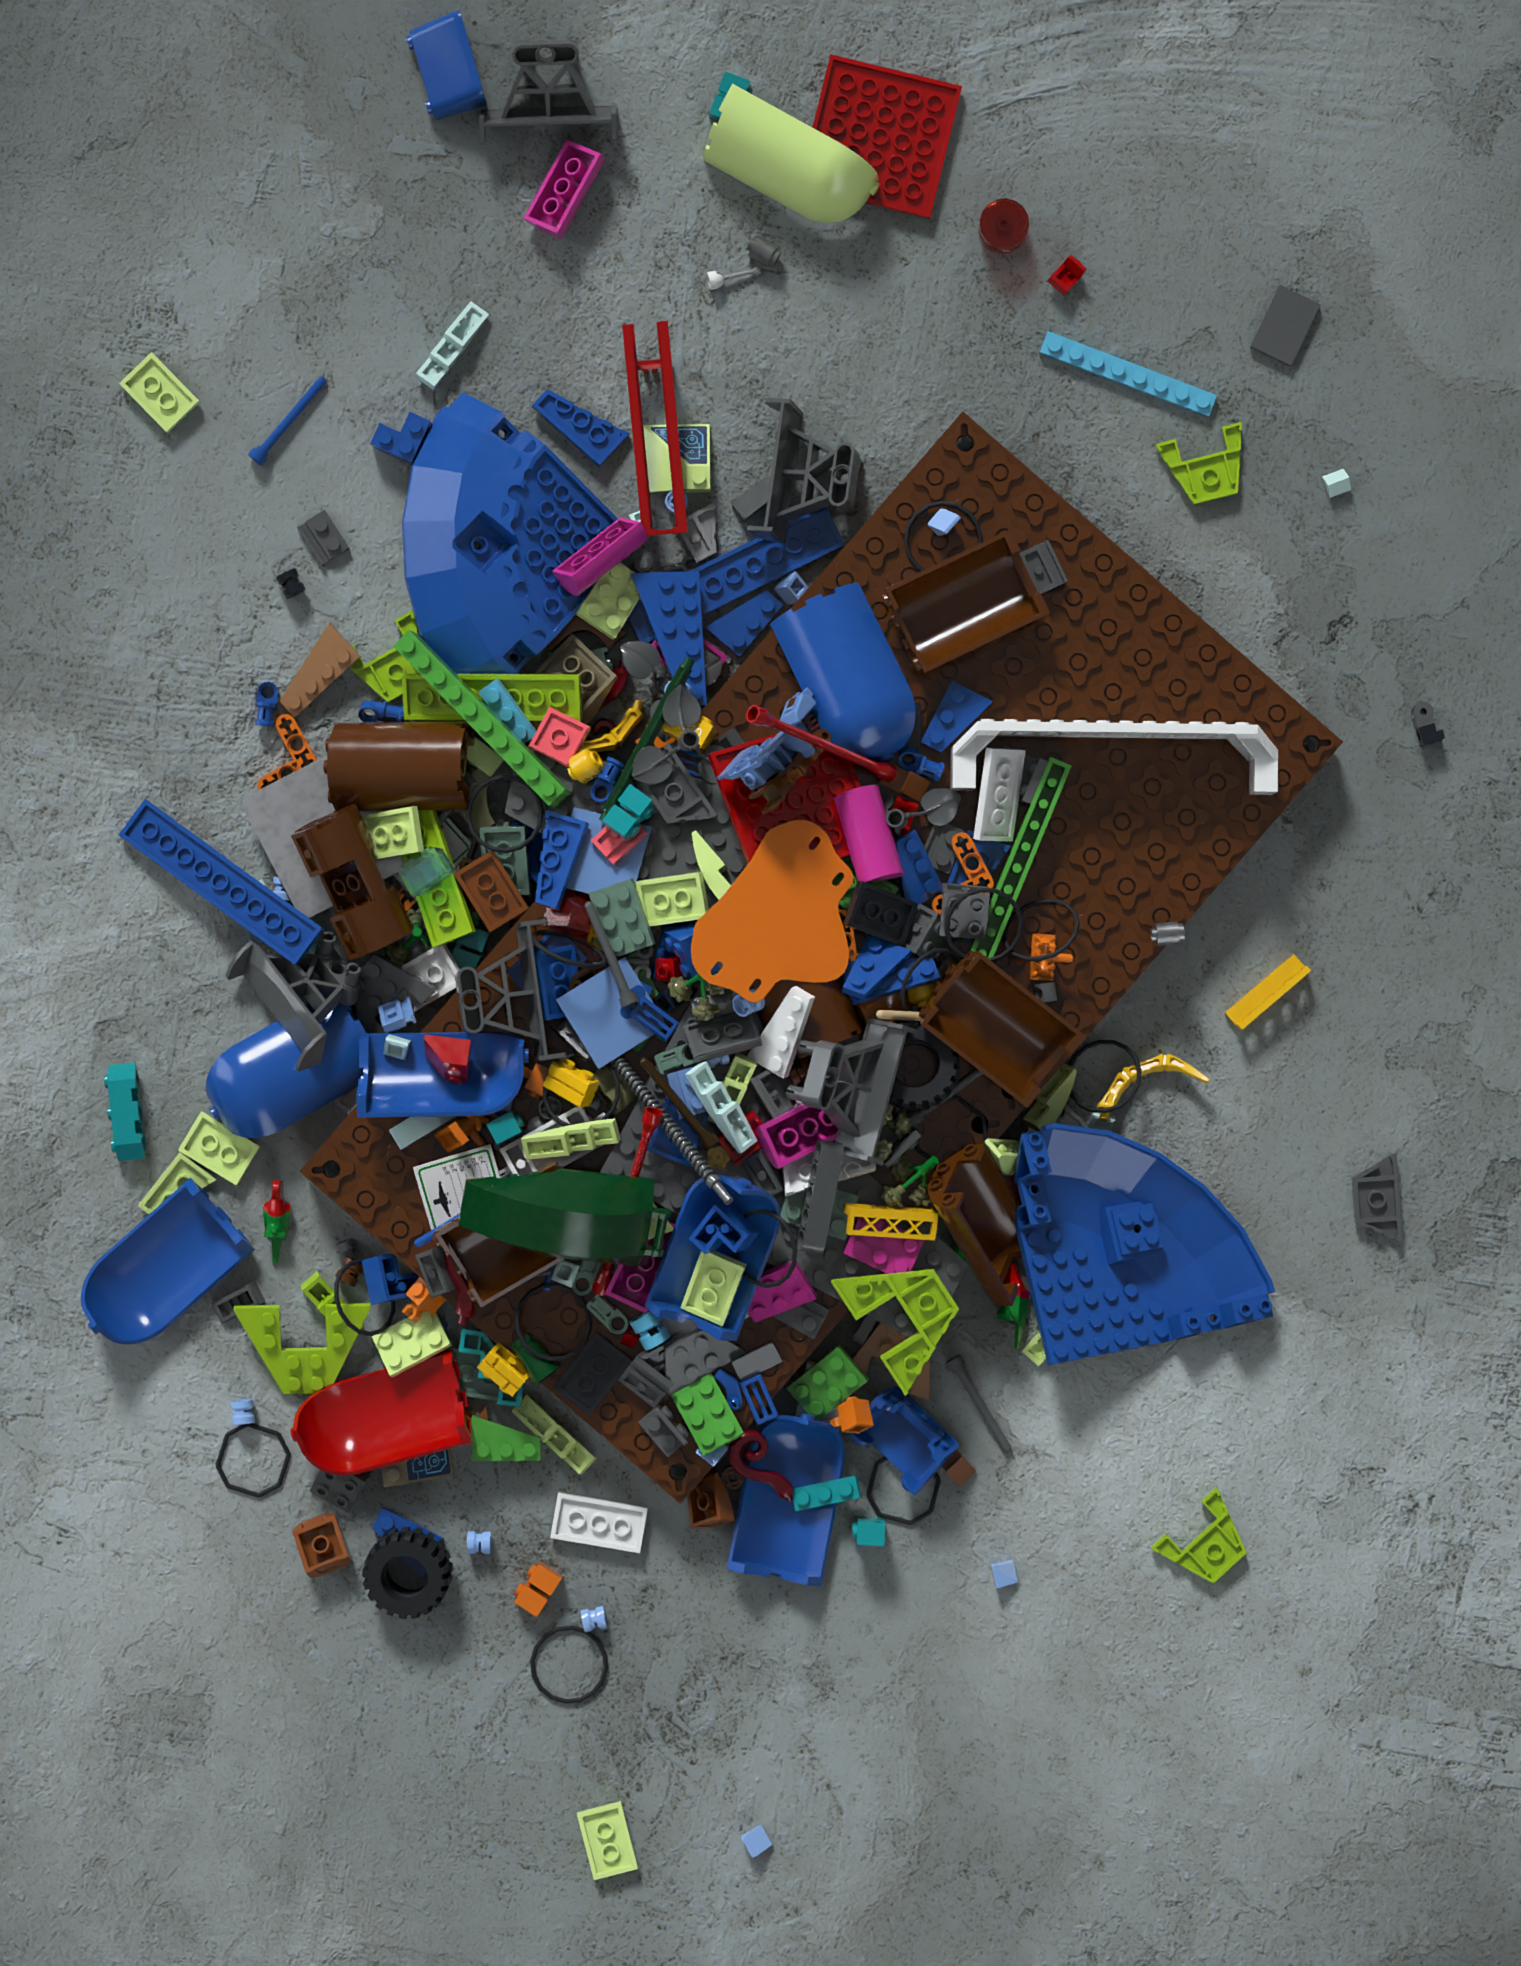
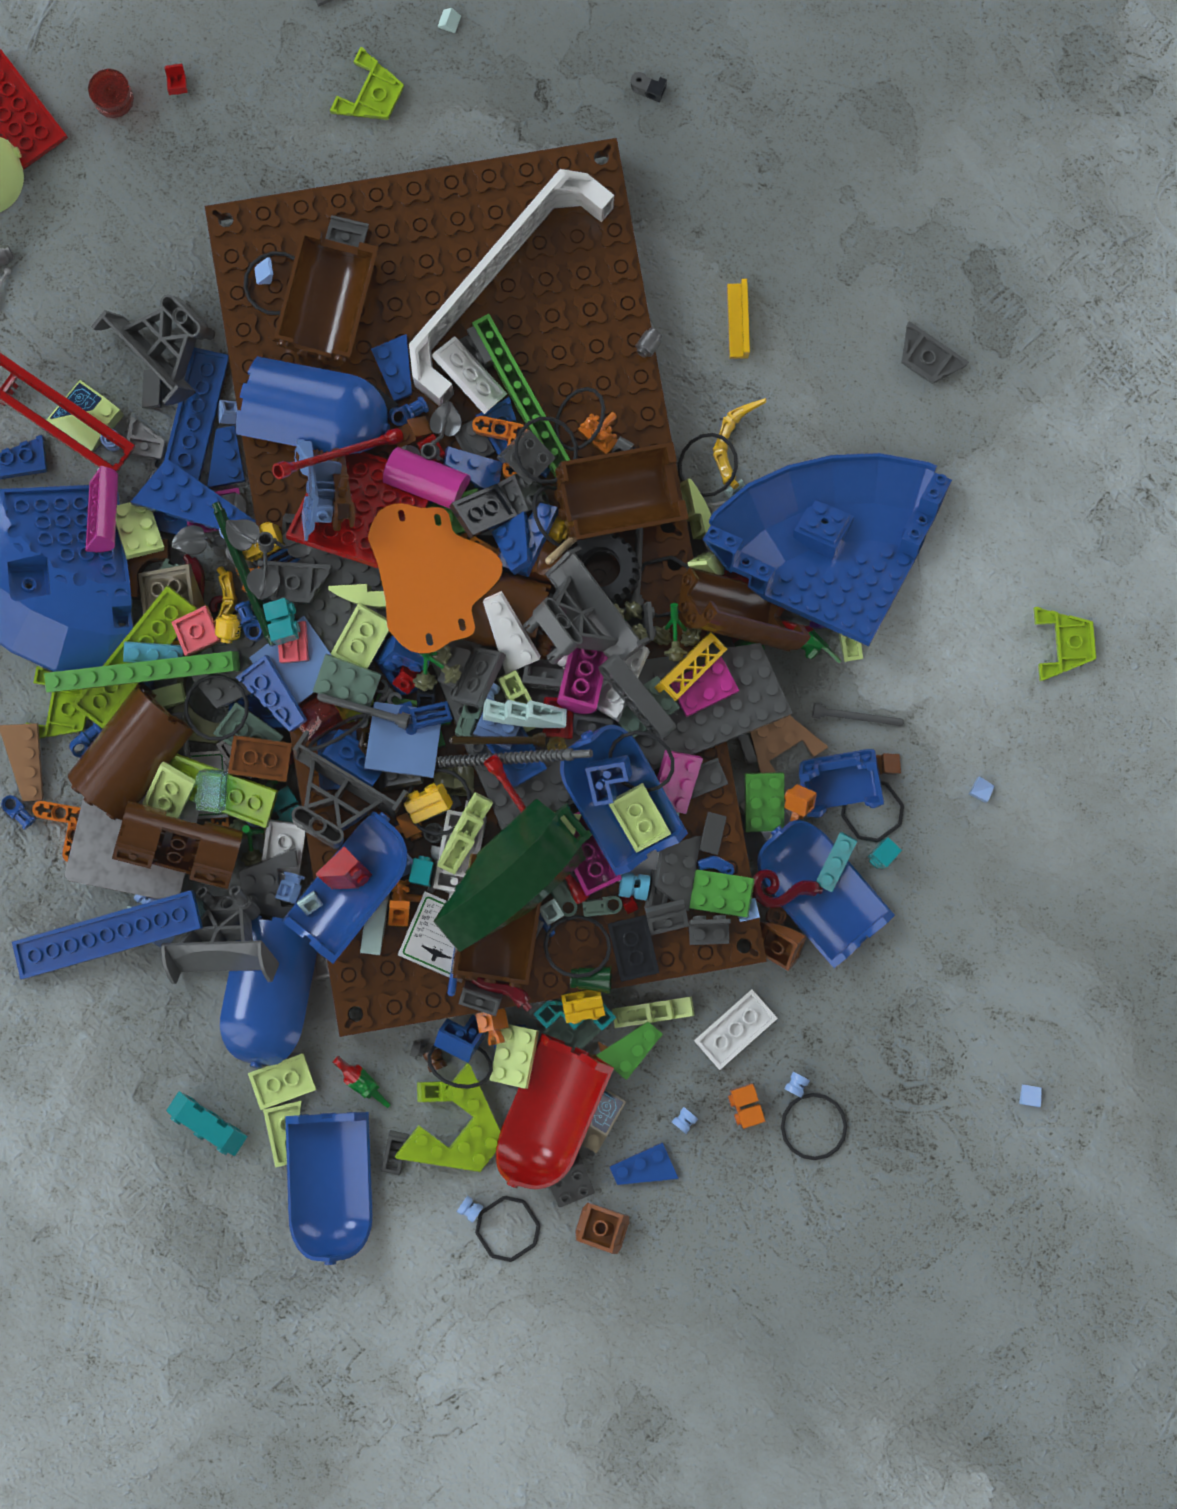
camera: 55 degrees left, 5 degrees down
(399, 1599) = (671, 1208): black tyre -> none
(607, 1840) = (952, 1196): yellowish green plate -> none
(744, 1007) = (470, 645): light blue wheel -> none
(766, 1417) = (735, 859): blue tile -> none
(925, 1303) = (762, 688): lime wing -> none
(1128, 374) = (271, 93): medium azure plate -> none

